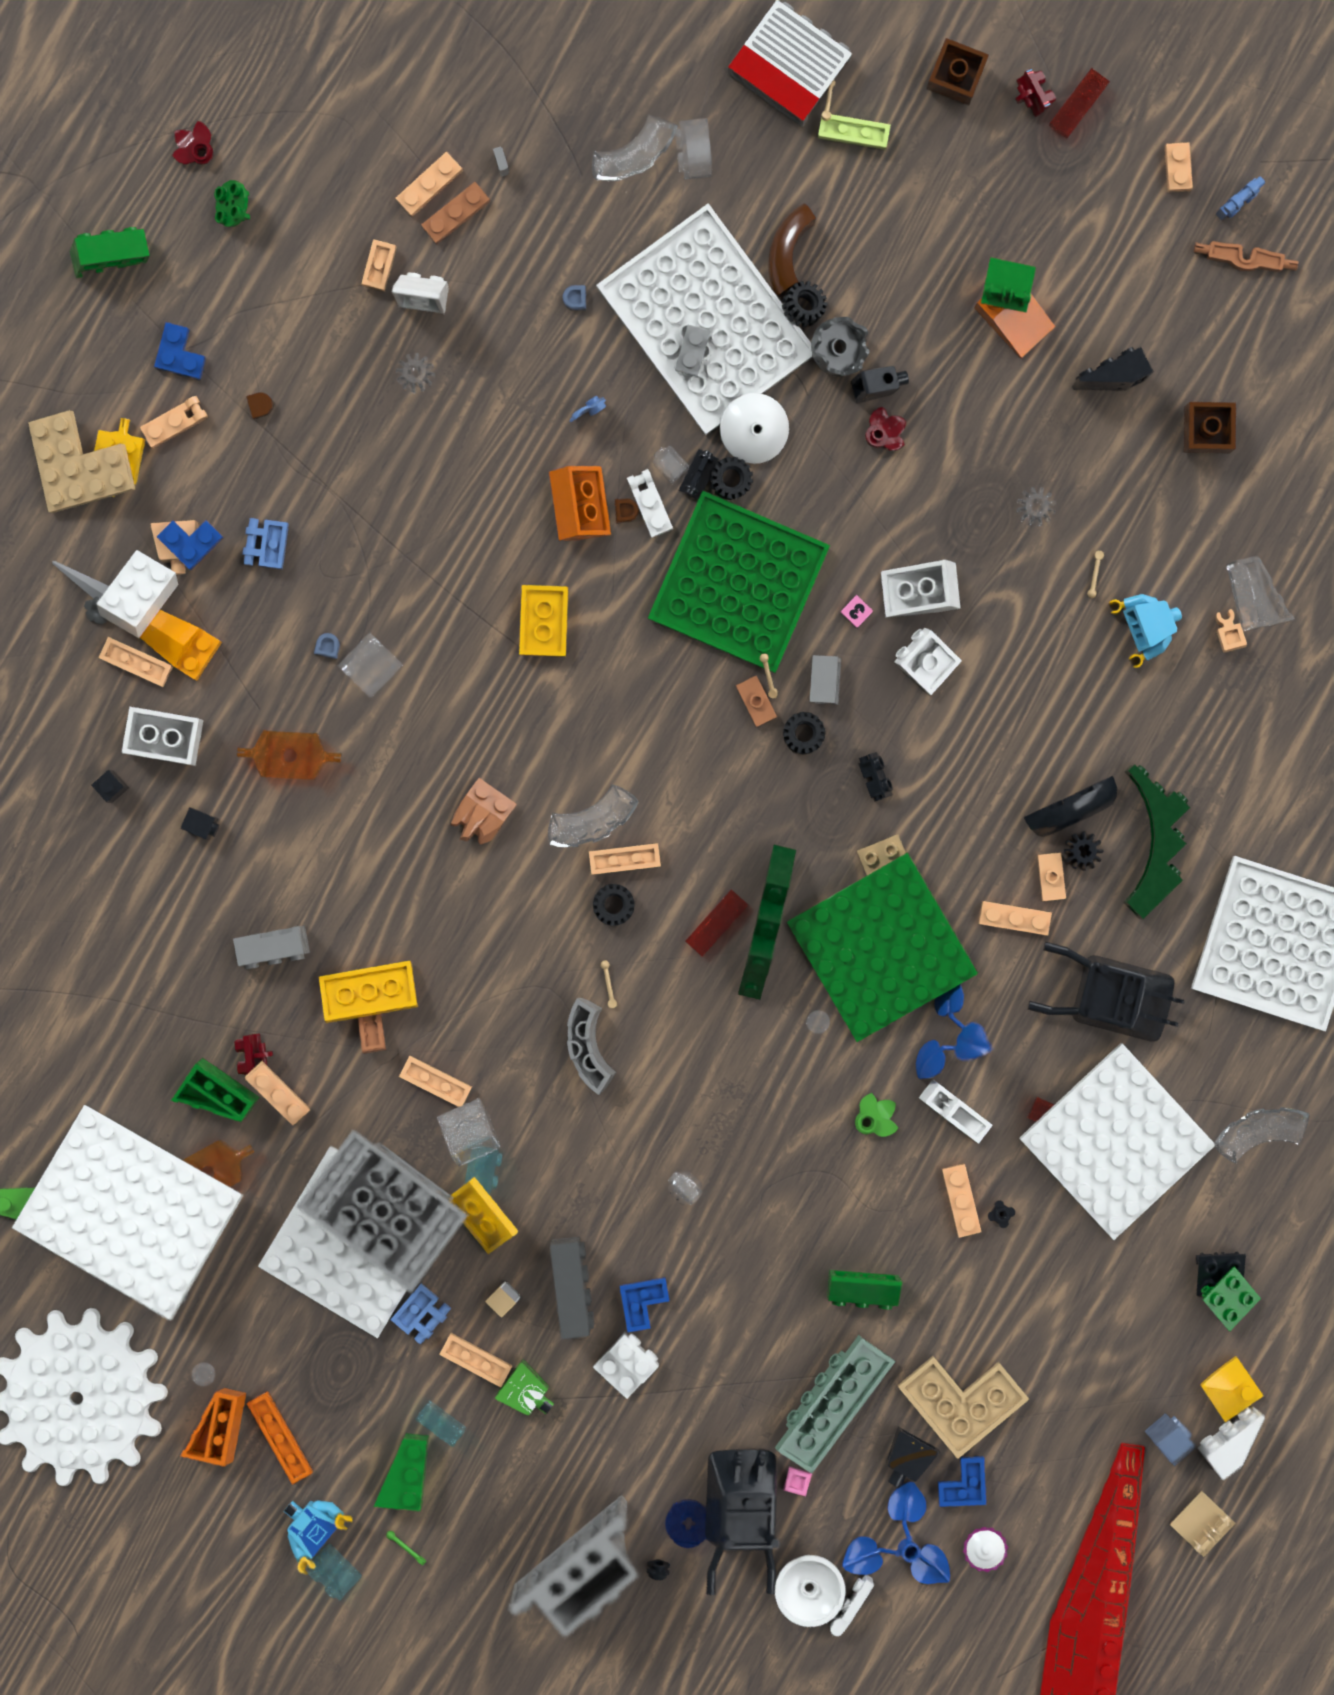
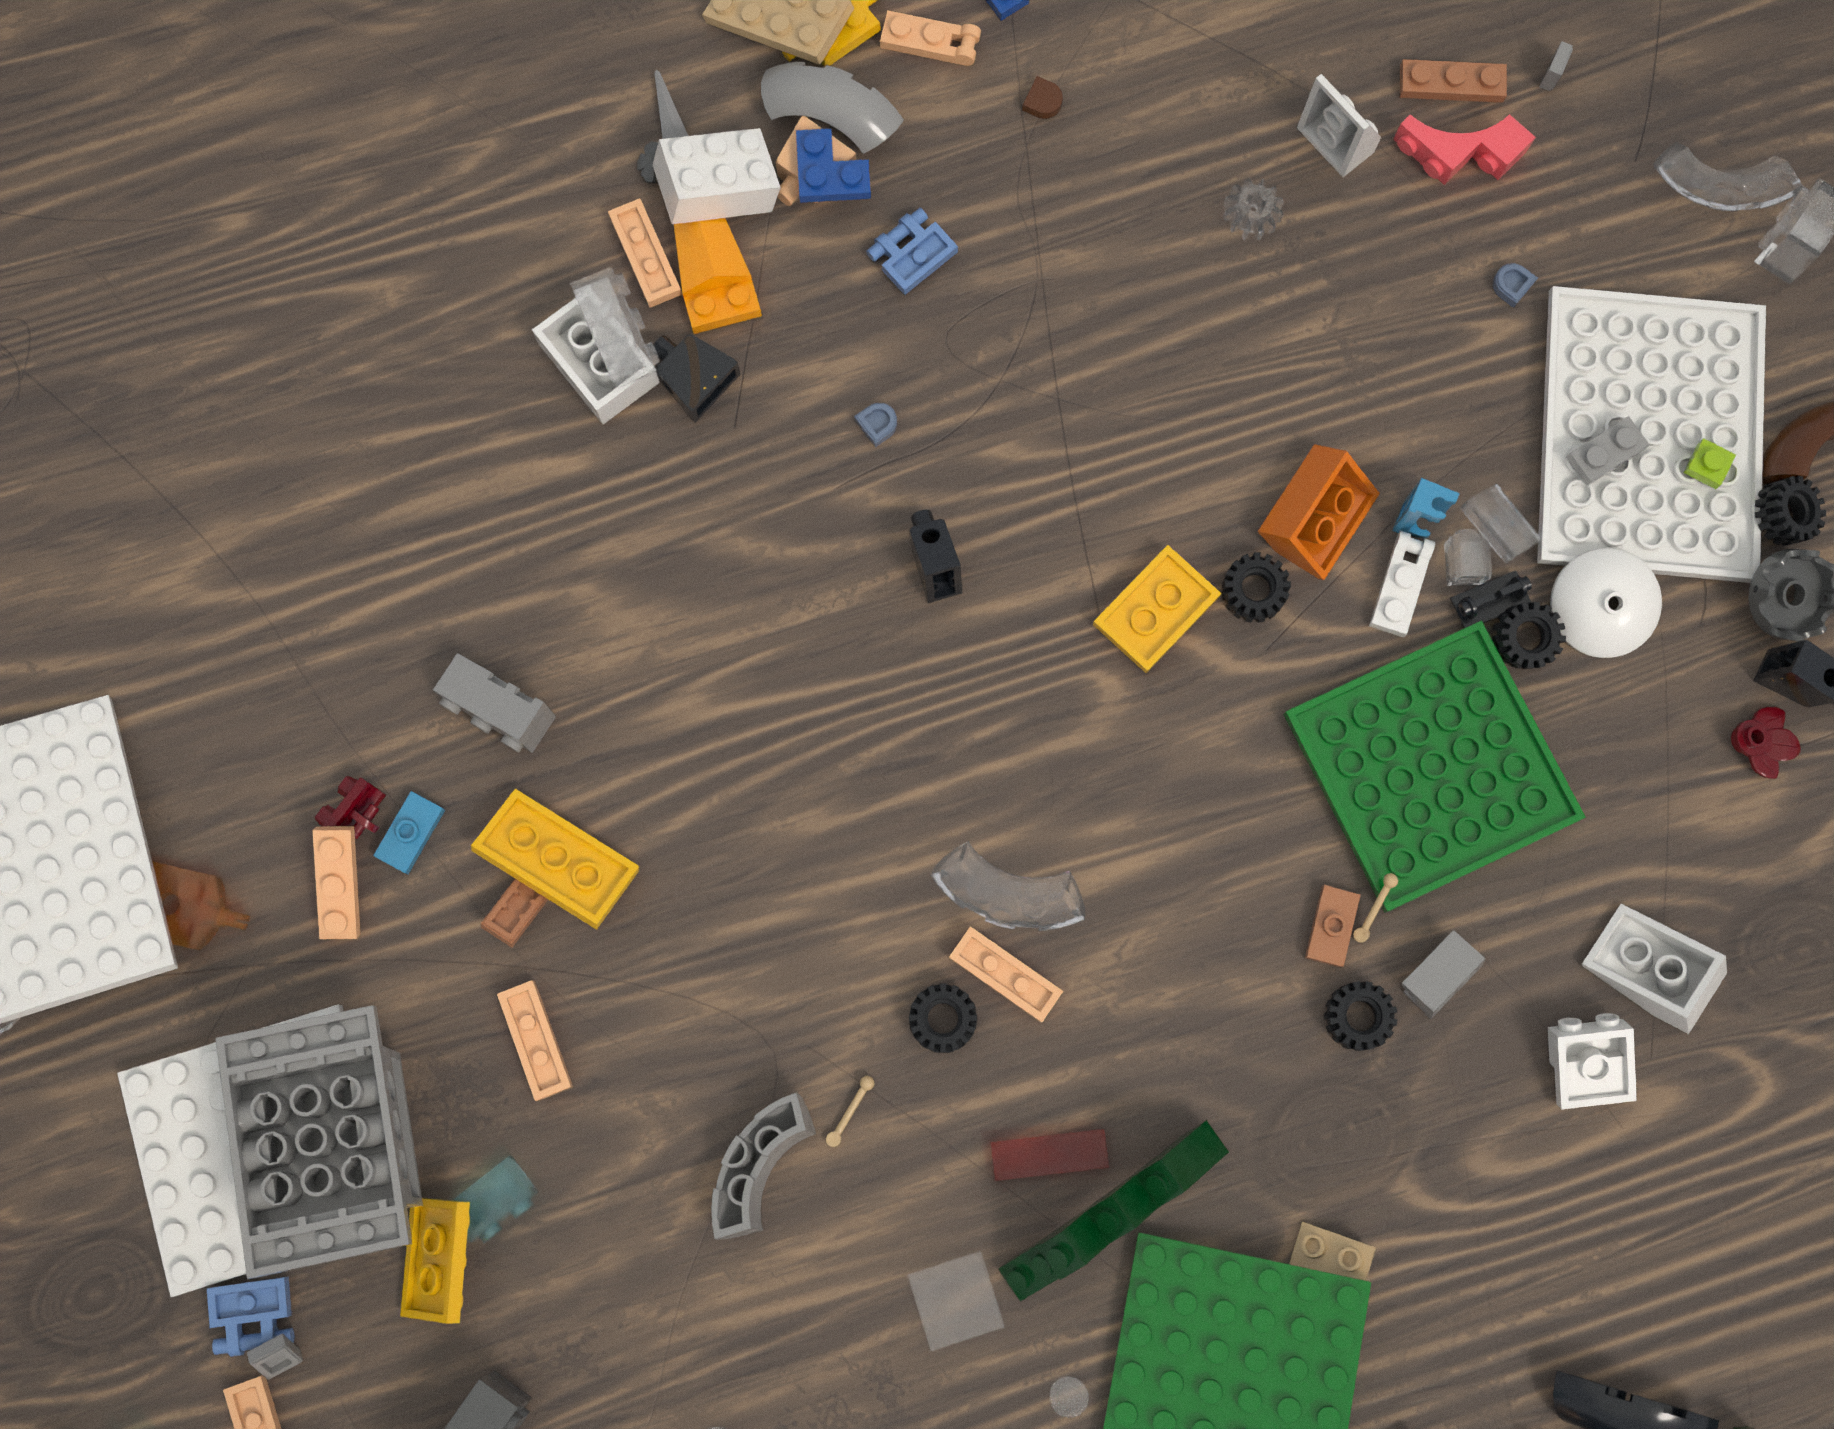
camera: 40 degrees right, 10 degrees down
(110, 786) = (484, 361): black brick -> none
(156, 503) = (832, 98): none -> light grey brick
(164, 717) = (615, 327): none -> clear wedge
(200, 824) = (545, 491): black brick -> none
(216, 701) = (694, 373): none -> black torso
(216, 1092) = (268, 816): green wedge -> none
(270, 752) = (709, 478): clear orange plate -> none
(287, 1041) = (409, 832): none -> dark azure plate
(370, 665) = (906, 484): clear hinge -> none
(379, 265) = (1320, 57): light nougat plate -> none
(420, 691) = (935, 557): none -> black torso
(429, 184) = (1449, 26): light nougat plate -> none
(449, 1320) = (275, 1356): none -> light grey tile
(468, 1132) = (514, 1140): clear brick -> none
(482, 812) = (884, 767): nougat plate -> none
(486, 259) = (1446, 153): none -> coral arch
(503, 1299) = (366, 1391): tan piece -> none
(581, 554) = (1270, 572): none -> black tyre
(593, 406) = (1429, 416): medium blue plate -> none
(626, 510) = (1366, 568): reddish brown tile -> none
(627, 459) = (1424, 501): none -> dark azure hinge
(671, 433) = (1500, 523): none -> clear tile
(731, 1025) = (955, 1300): none -> clear tile
(746, 313) = (1709, 463): none -> lime plate
(856, 611) = (1550, 926): bright pink tile -> none
(880, 784) = (1403, 1163): black hinge -> none

